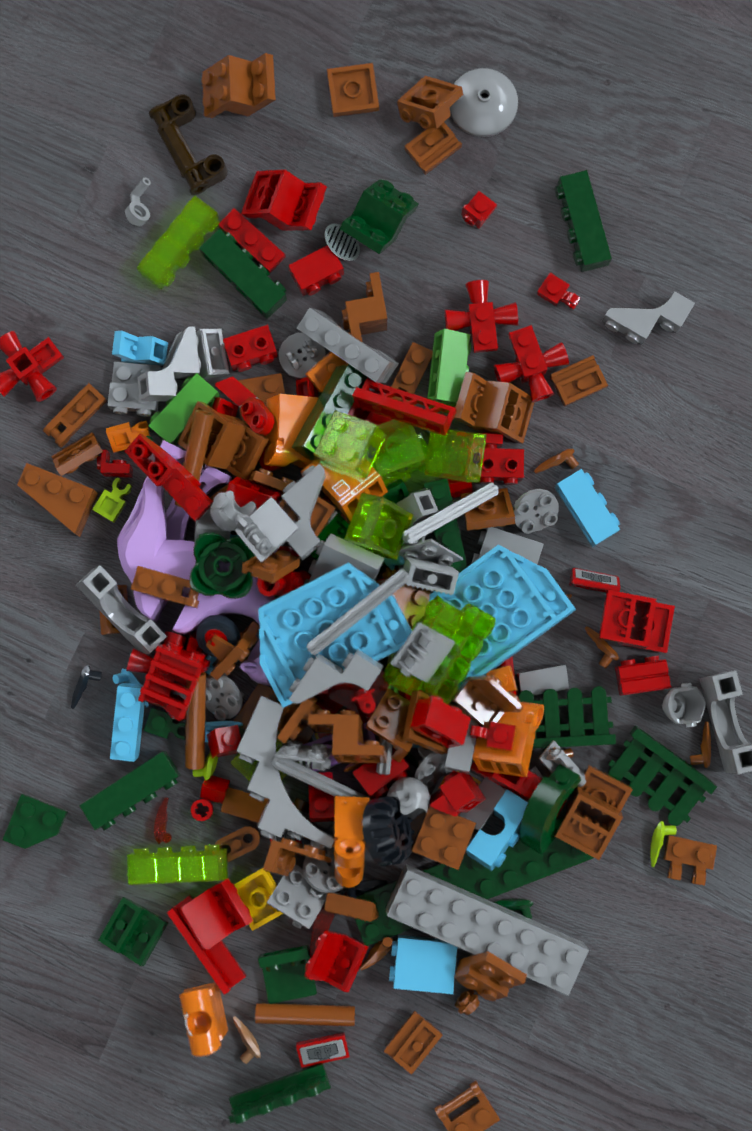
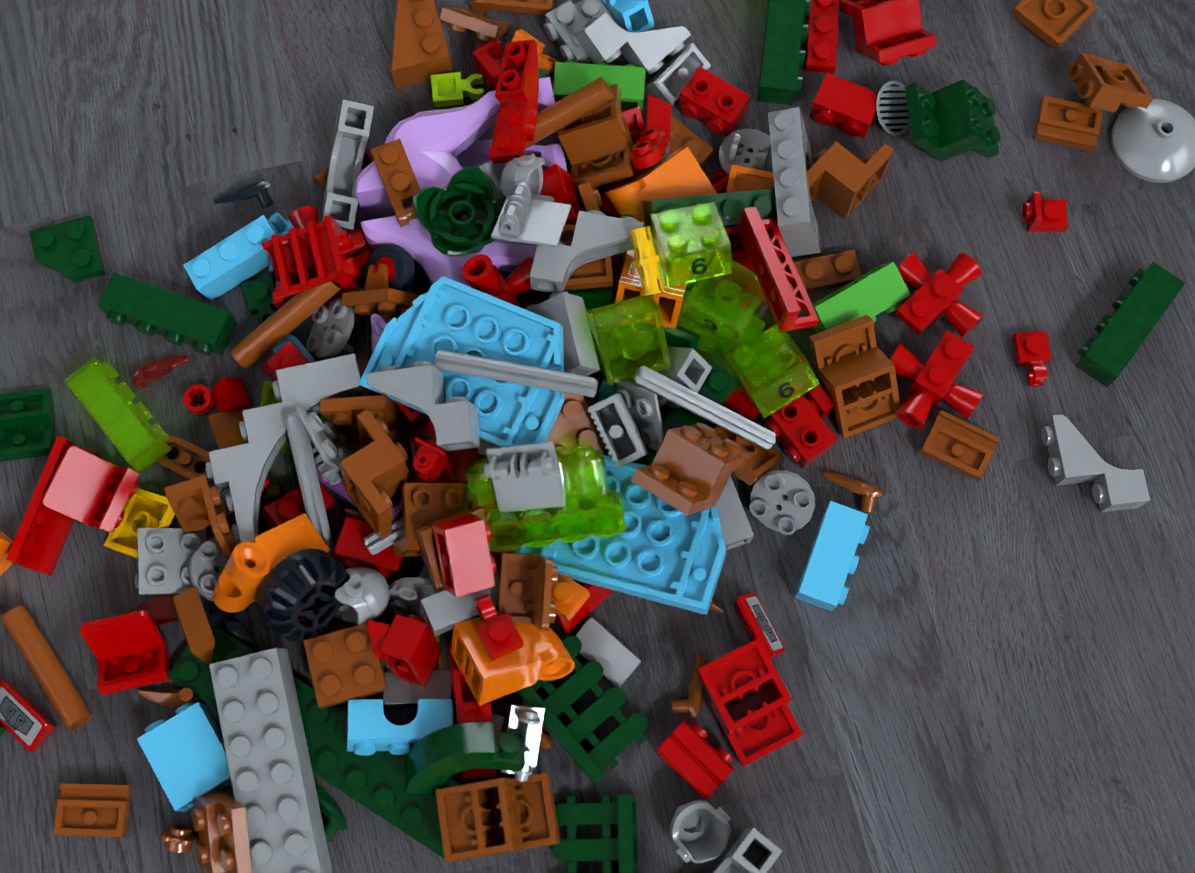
camera: 55 degrees right, 10 degrees down
(208, 769) = (247, 374): lime bar -> none
(273, 567) = (499, 256): dark orange plate -> none
(285, 974) = (74, 605): dark green bracket -> none
(345, 481) = (646, 261): none -> yellow pin
(486, 552) = (691, 468): none -> dark orange bracket

